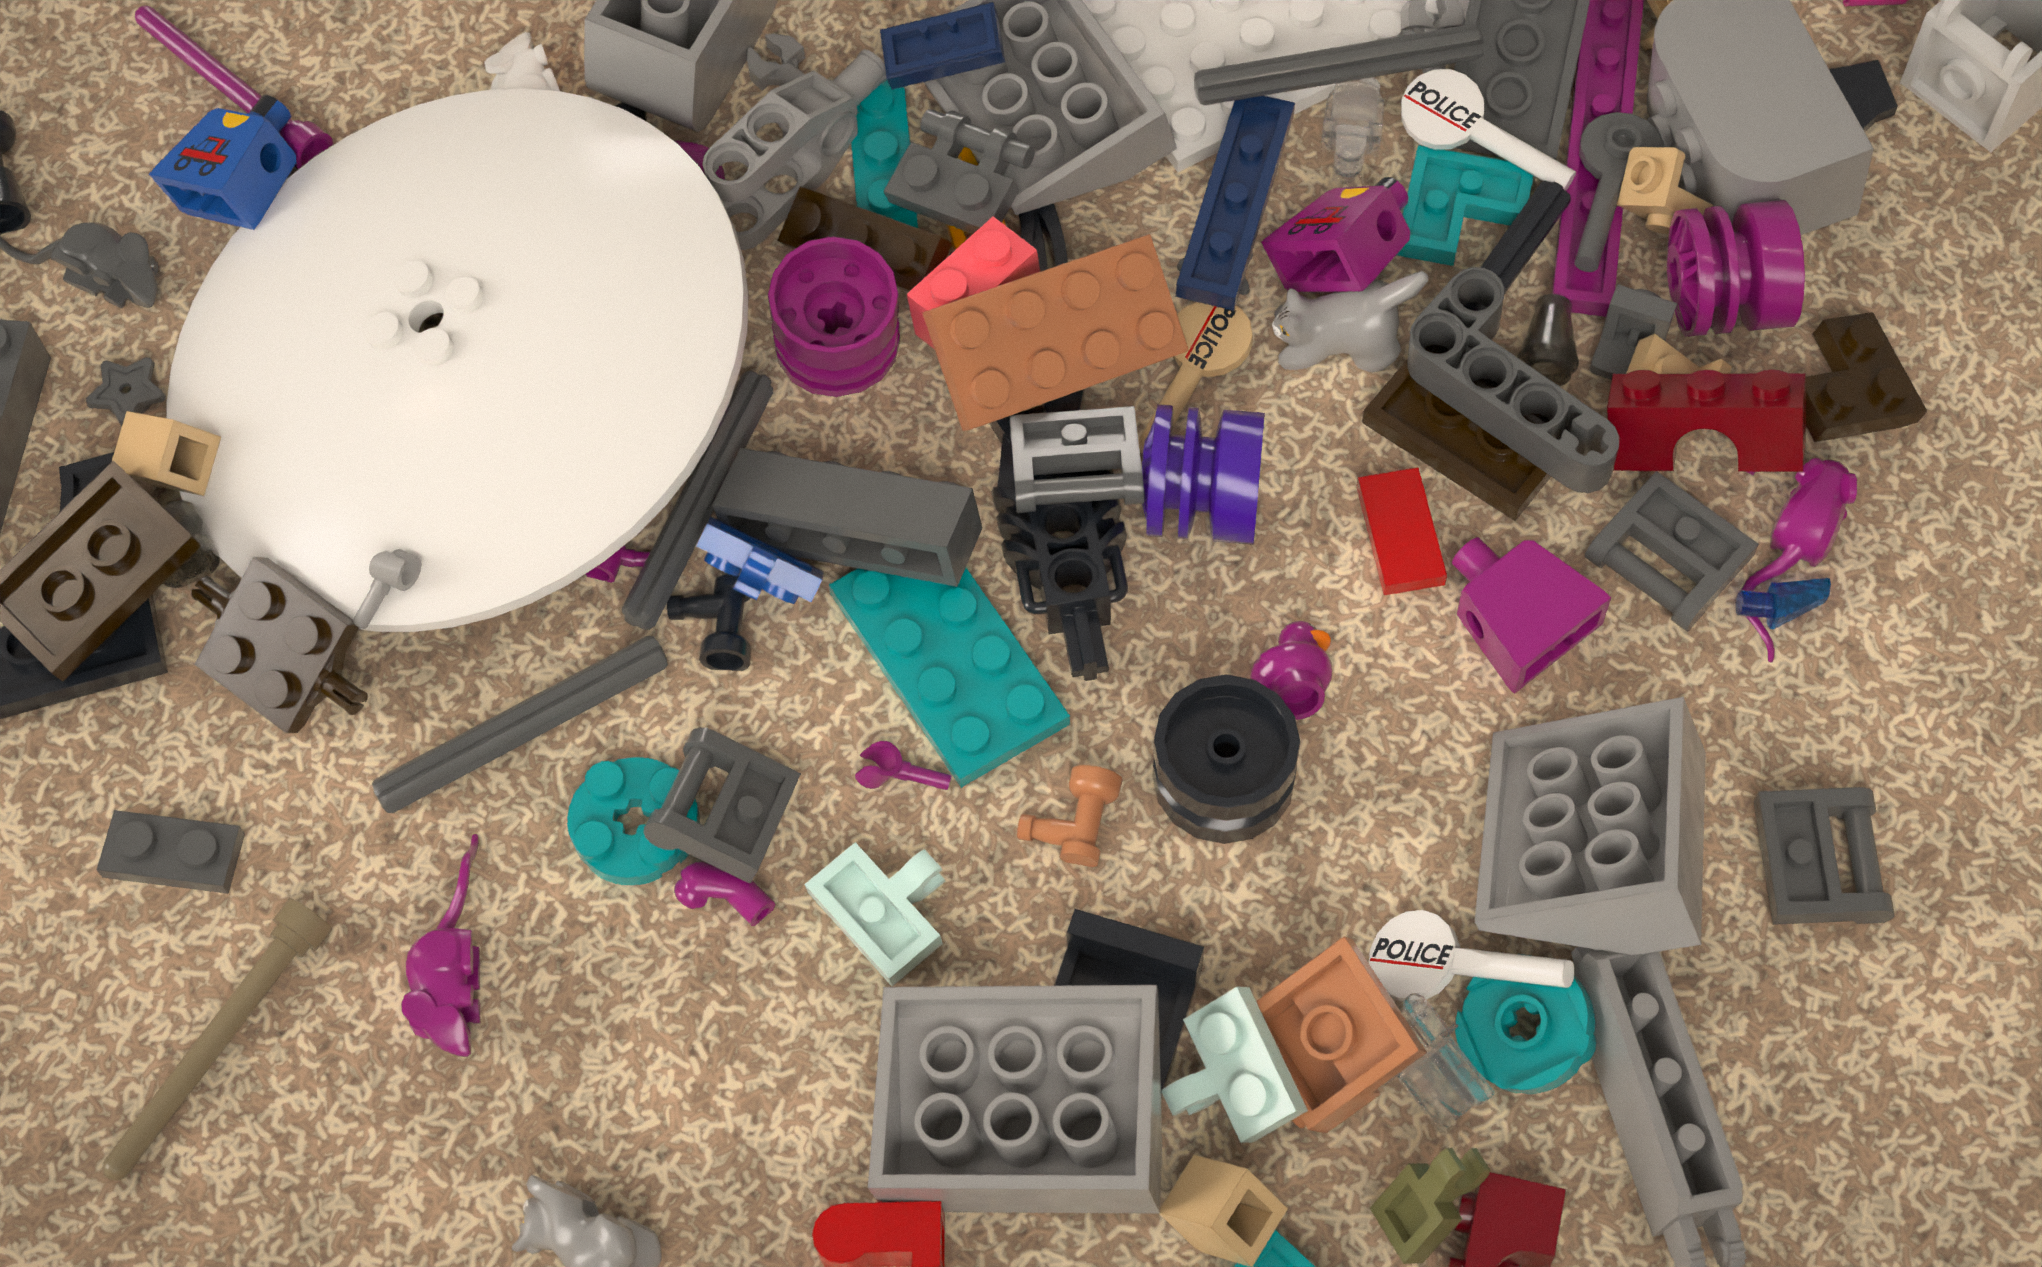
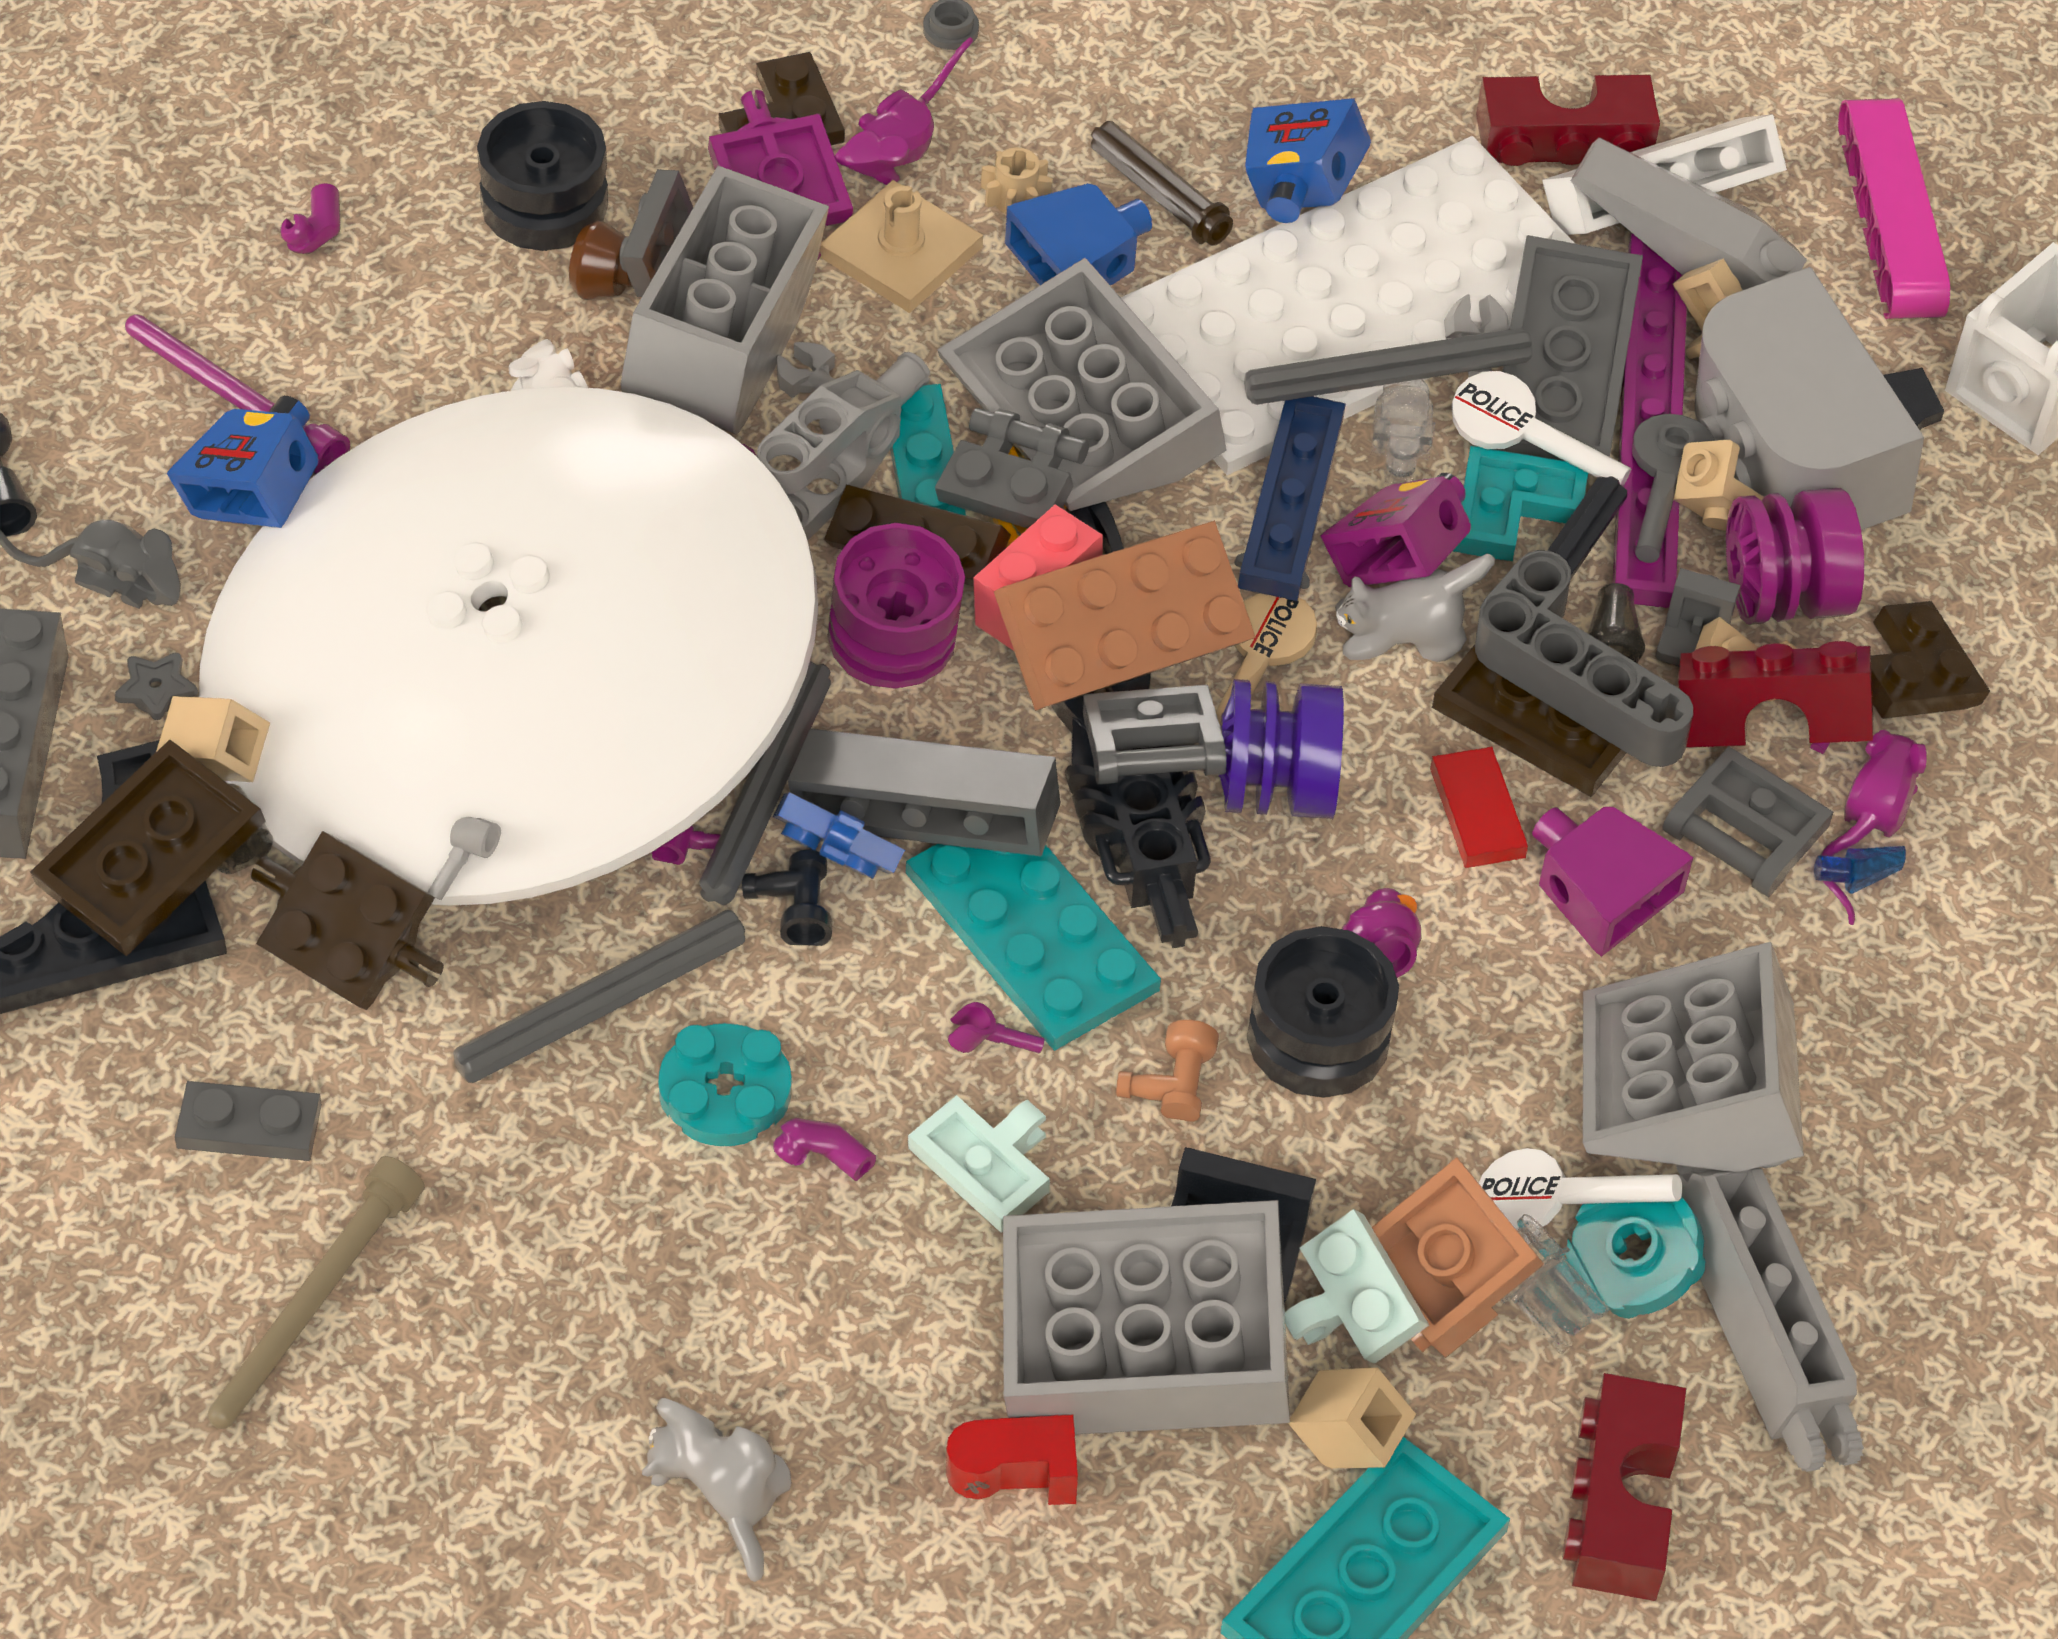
camera: 10 degrees left, 10 degrees down
(444, 974) = (547, 1228): magenta animal -> none
(744, 810) = (841, 1067): dark grey plate -> none
(942, 45) = (986, 347): dark blue plate -> none
(1419, 1206) = (1544, 1409): olive plate -> none
(1802, 857) = (1894, 1098): dark grey plate -> none

